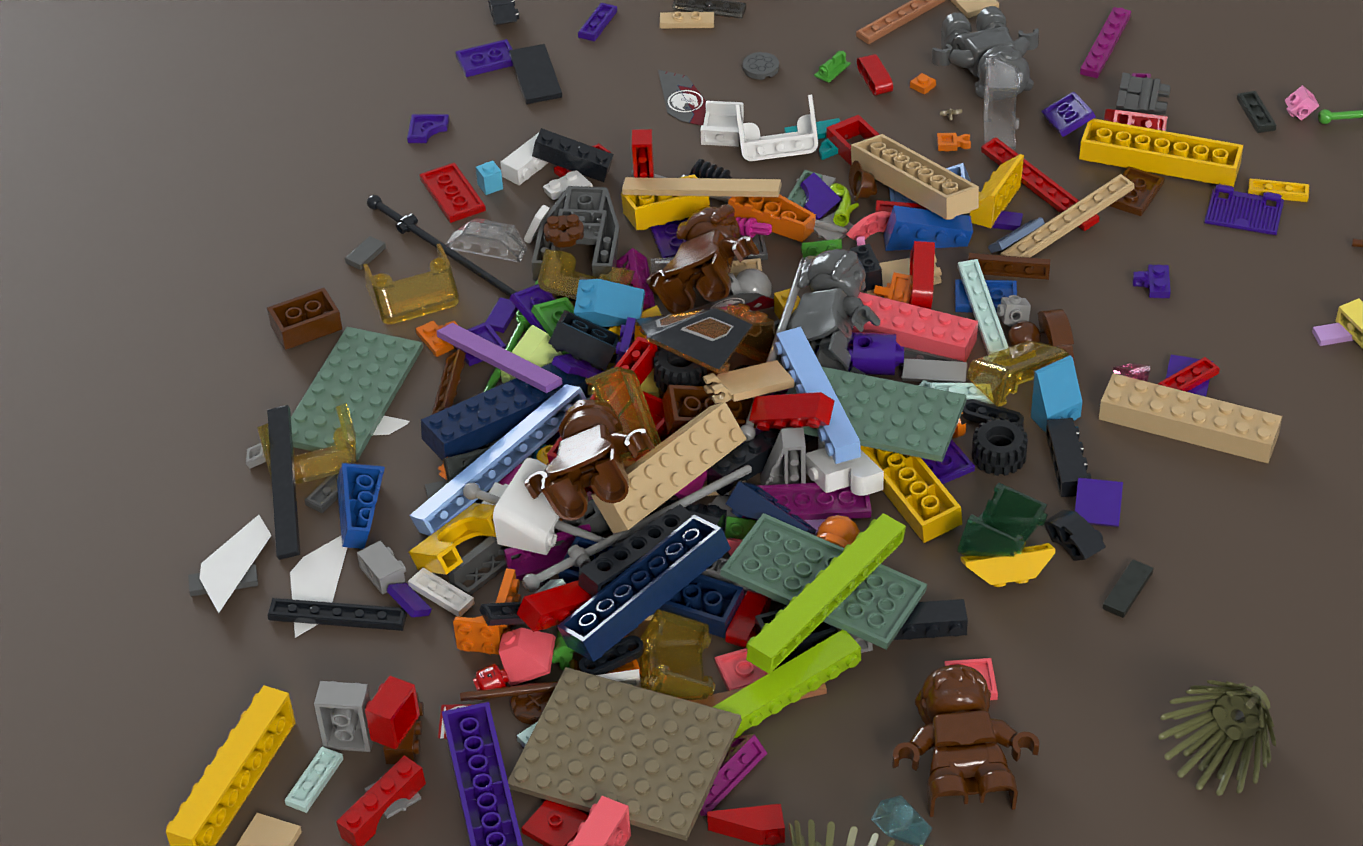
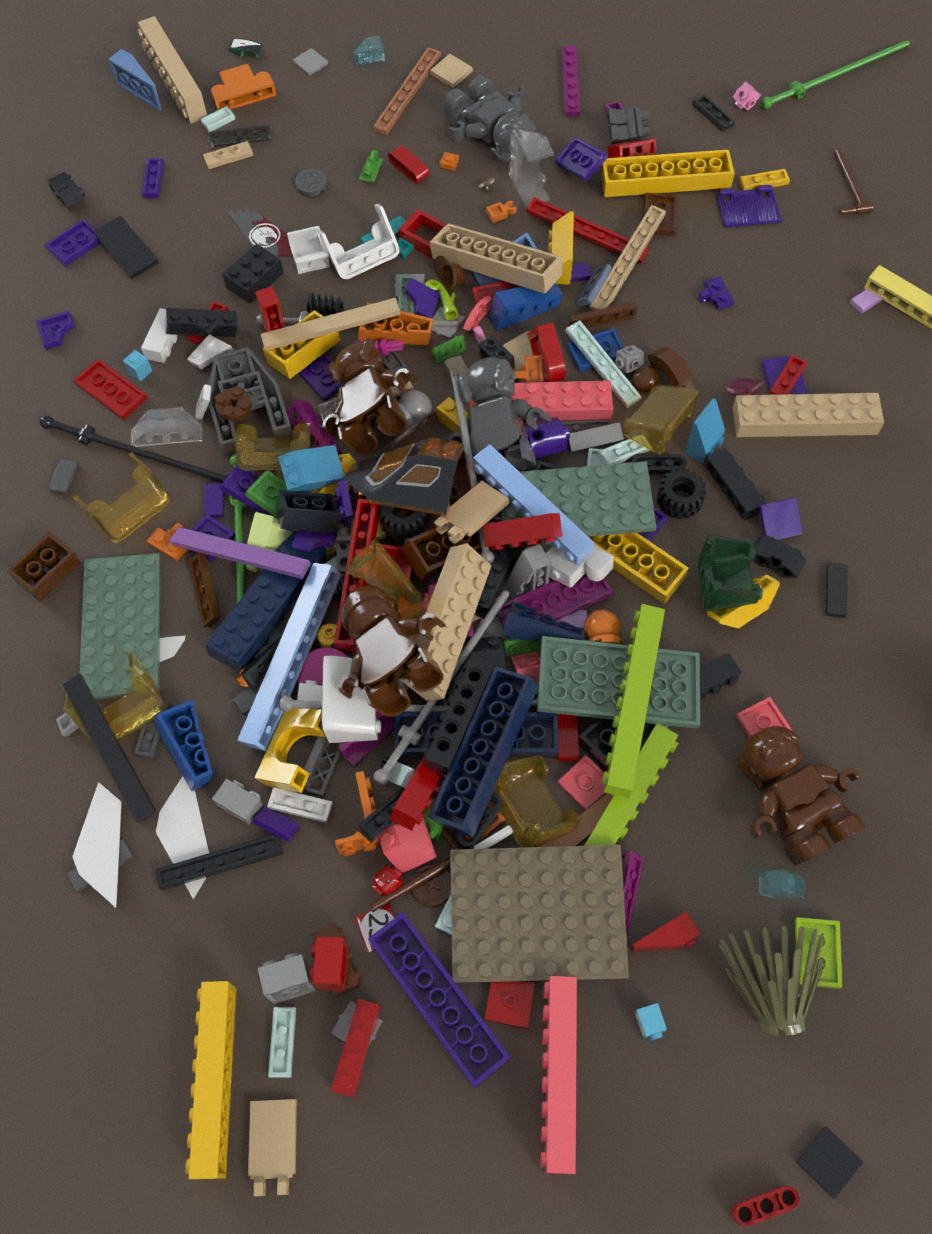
camera: 25 degrees left, 20 degrees up
(663, 119) = (253, 272): none -> black brick

